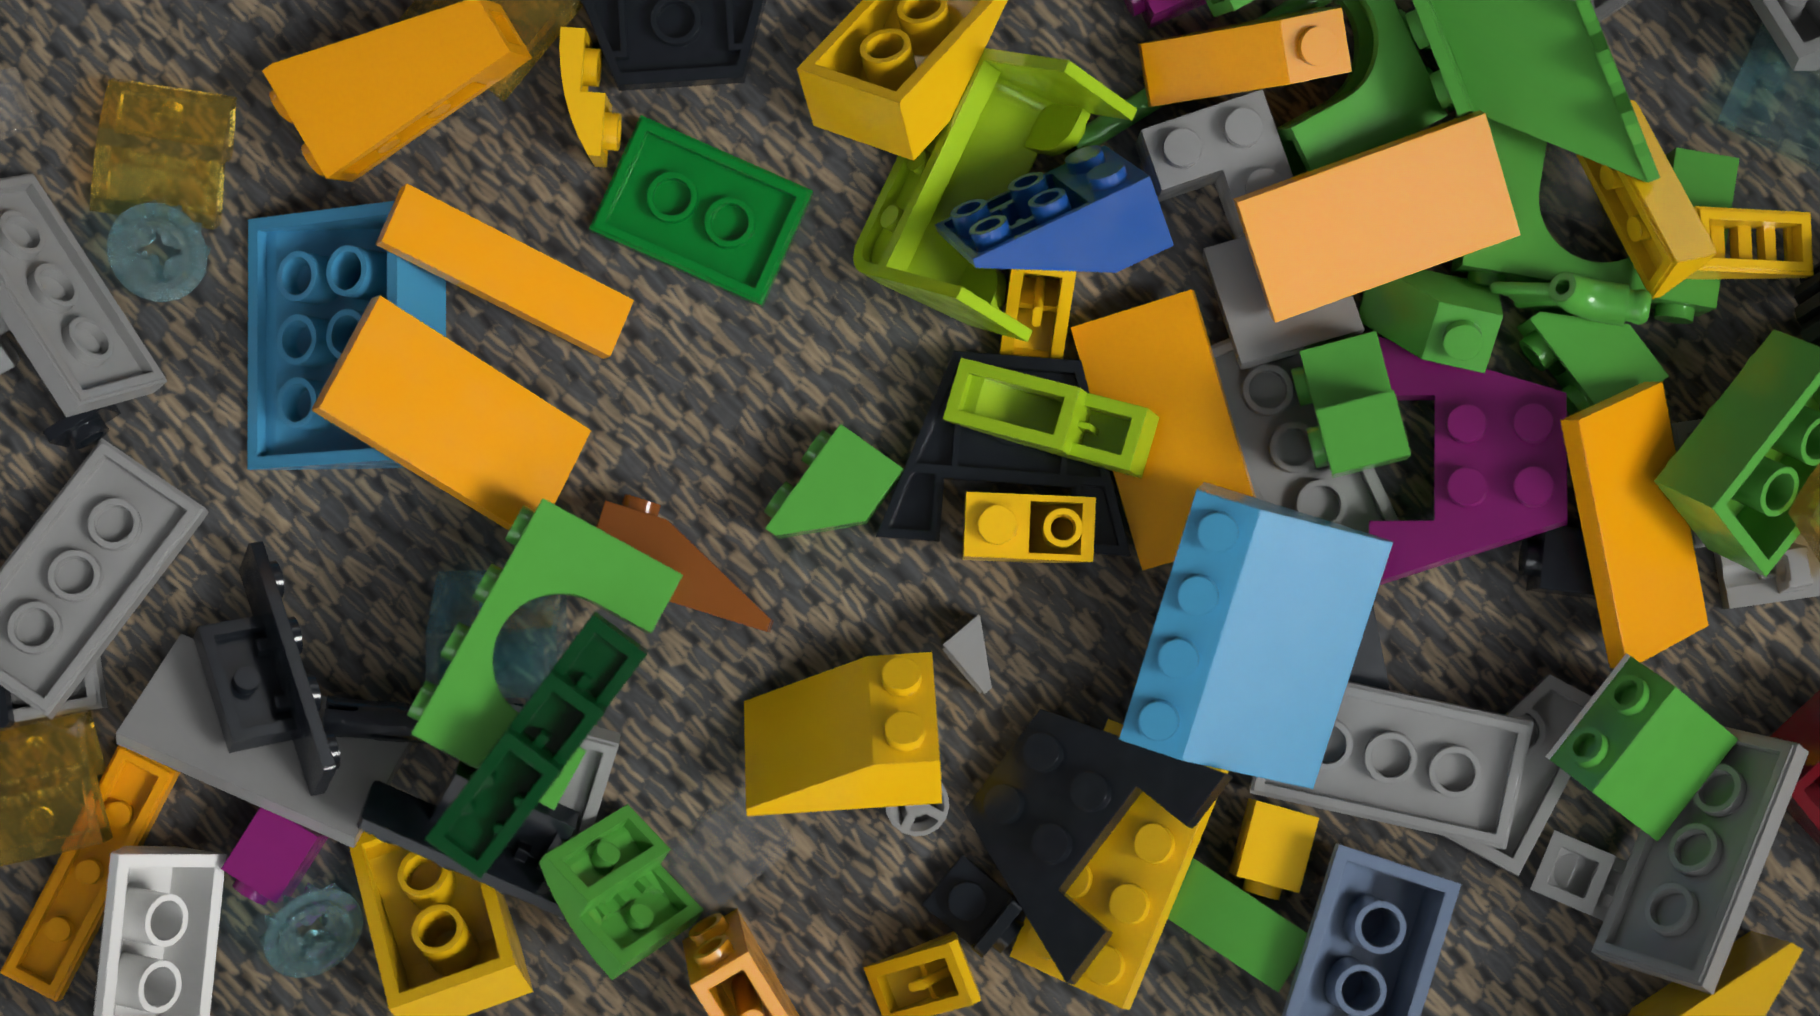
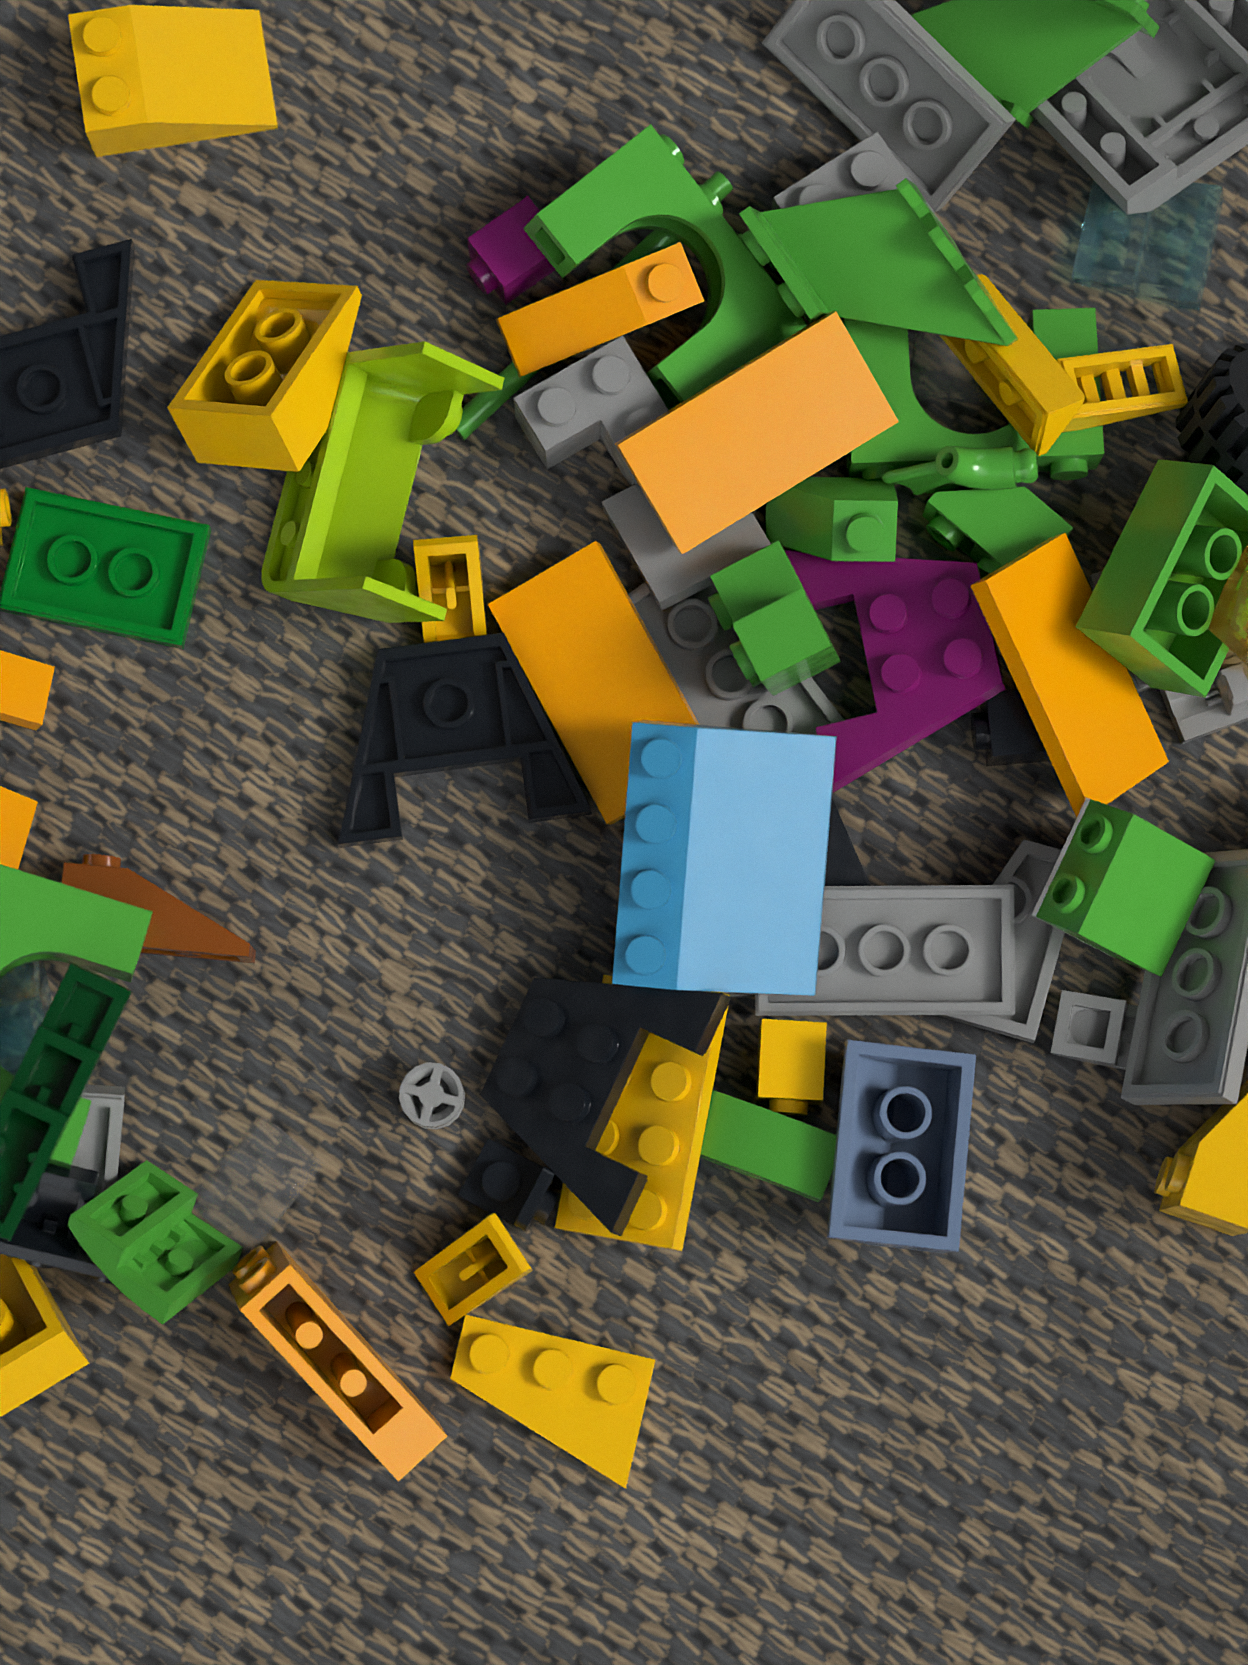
camera: 15 degrees left, 5 degrees down
(837, 490) = (292, 806): bright green slope -> none
(845, 739) = (348, 1045): yellow slope -> none
(969, 655) = (451, 940): light grey slope -> none
(1028, 528) = (483, 804): yellow slope -> none
(1052, 417) = (485, 690): lime slope -> none
(1077, 217) = (471, 492): blue slope -> none

